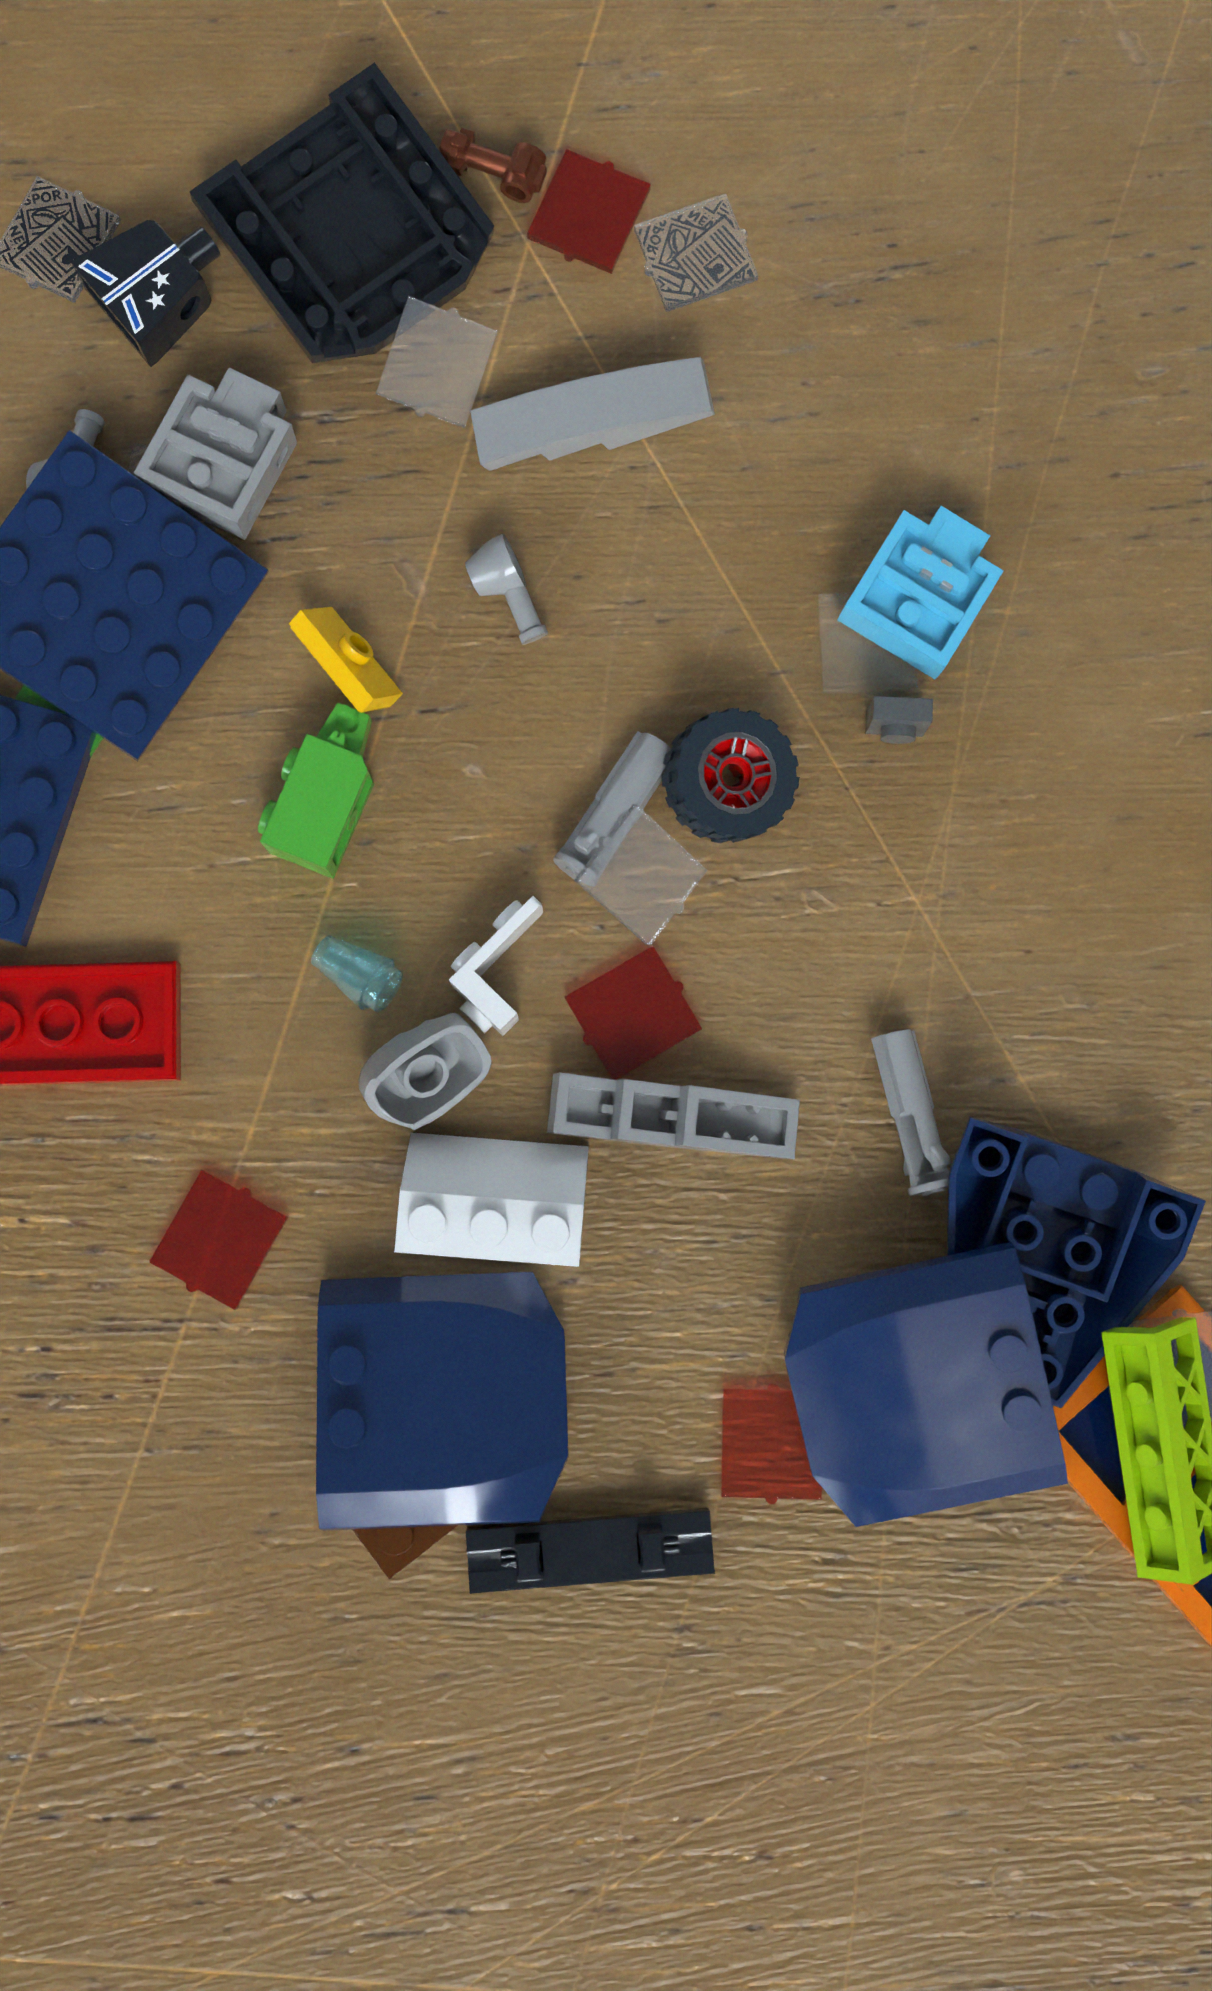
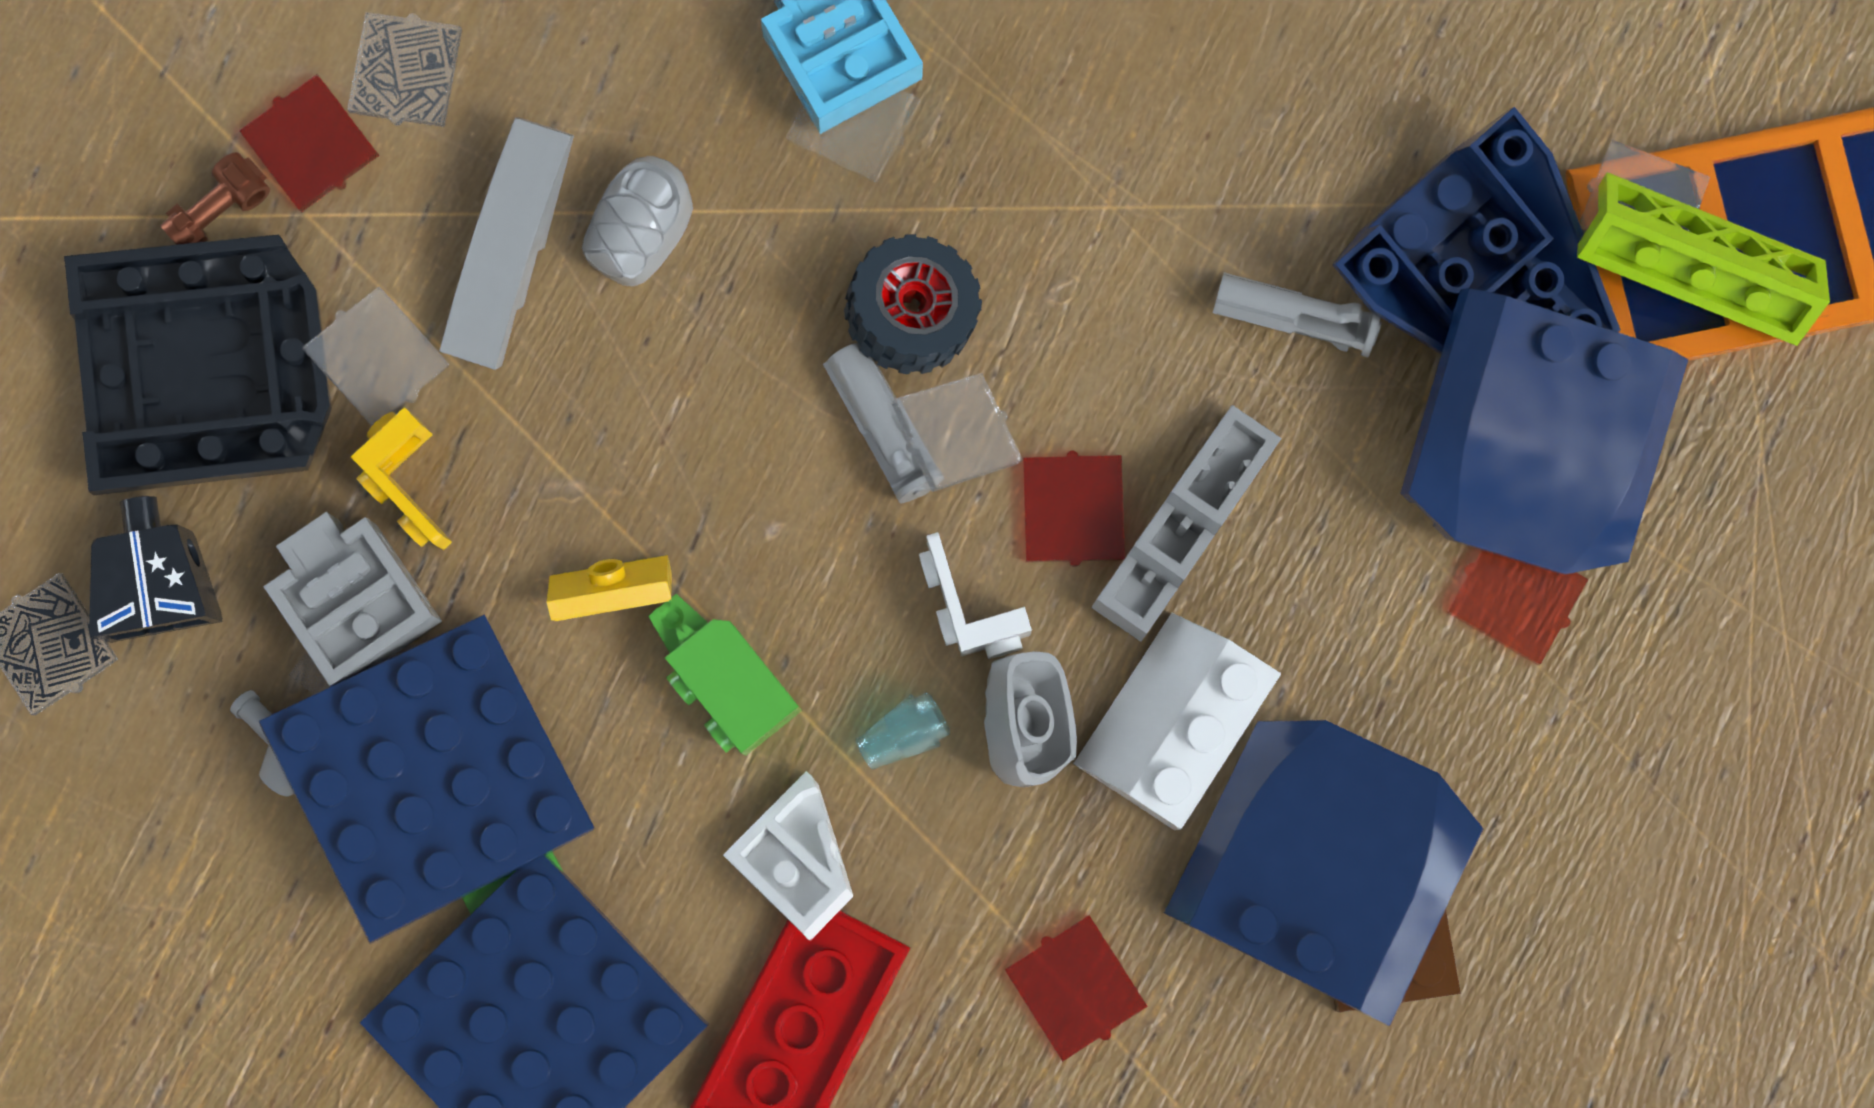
camera: 55 degrees left, 0 degrees up
(198, 939) = (795, 858): none -> white wing
(366, 414) = (389, 445): none -> yellow bracket
(498, 572) = (605, 409): light grey bar -> none
(589, 1550) = (1527, 804): black hinge -> none
(674, 511) = (638, 221): none -> light grey piece
(899, 718) = (942, 130): dark grey plate -> none

